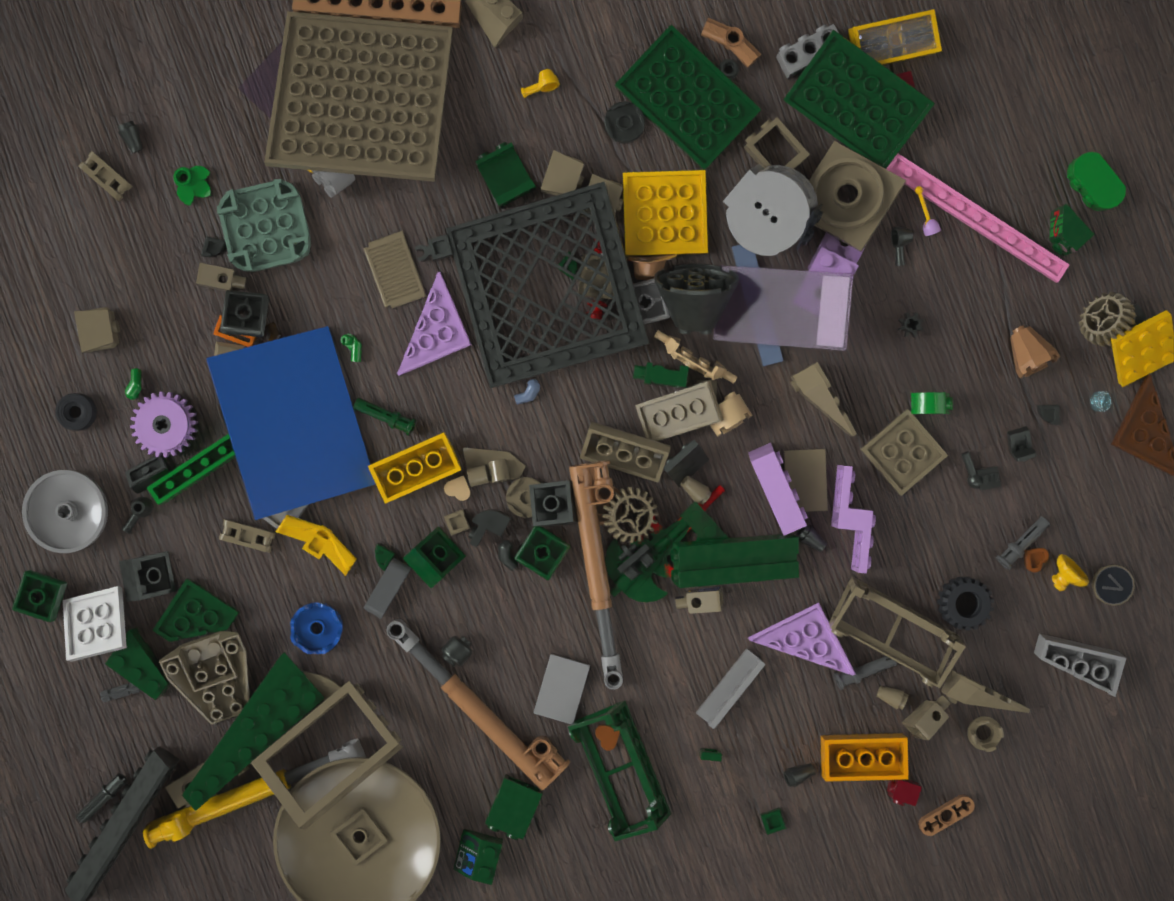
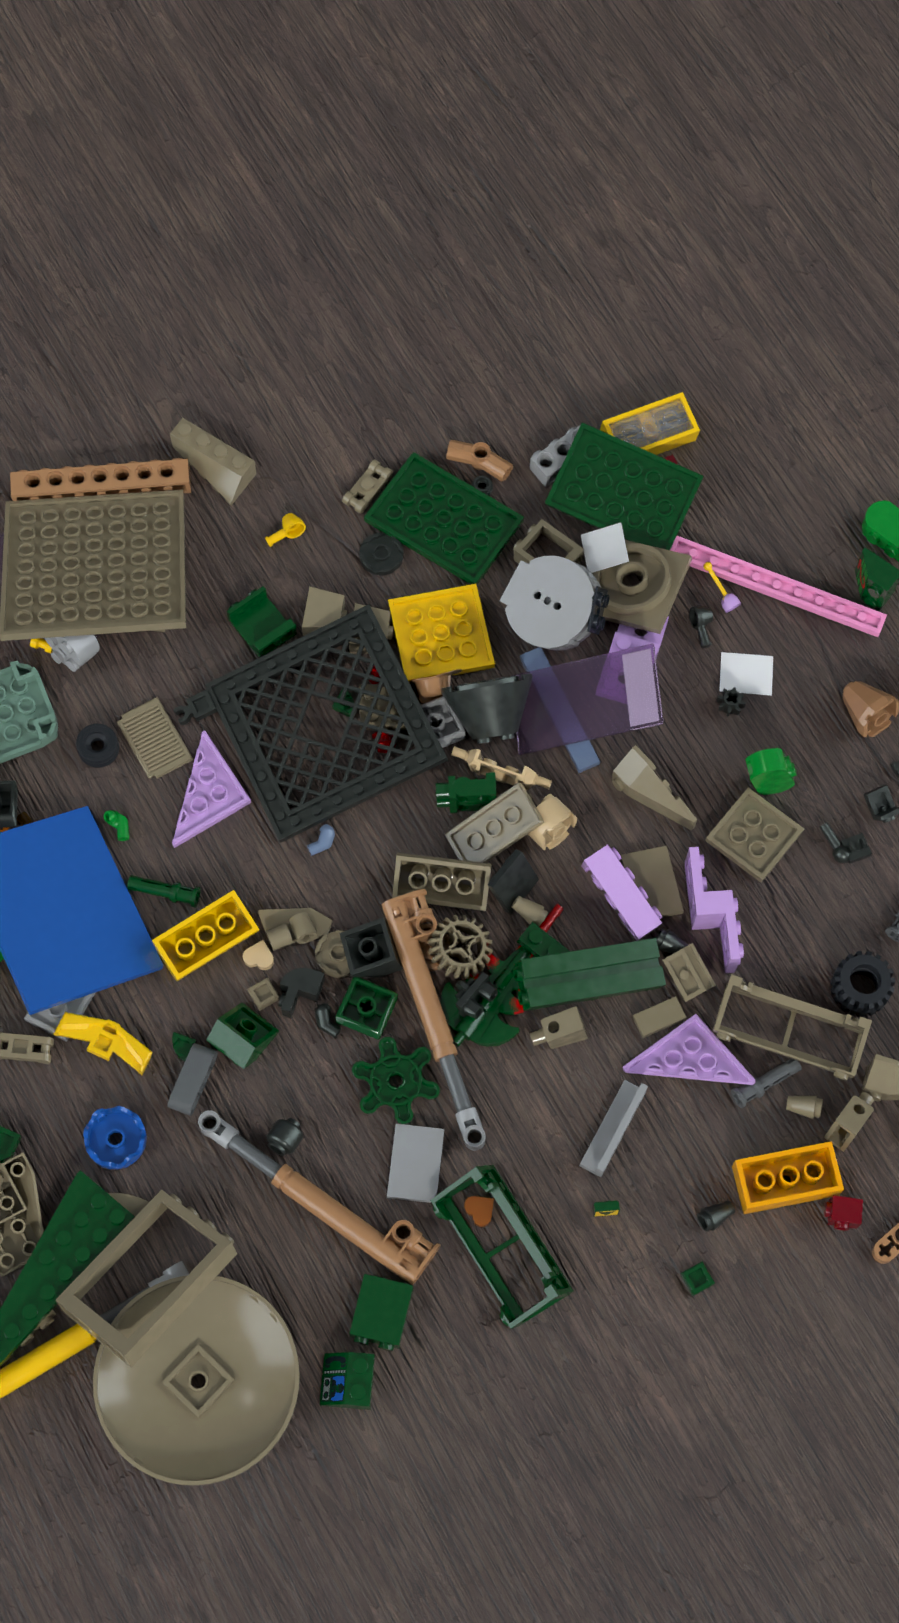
camera: 15 degrees left, 20 degrees down
(355, 270) = (94, 733): none -> black tyre
(560, 632) = (392, 1064): none -> dark green plate
(623, 51) = (367, 486): none -> dark tan plate
(787, 599) = (659, 1017): none -> dark tan tile
(820, 567) = (688, 972): none -> dark tan plate
(828, 156) = (604, 548): none -> white sticker
(930, 296) = (747, 673): none -> white sticker

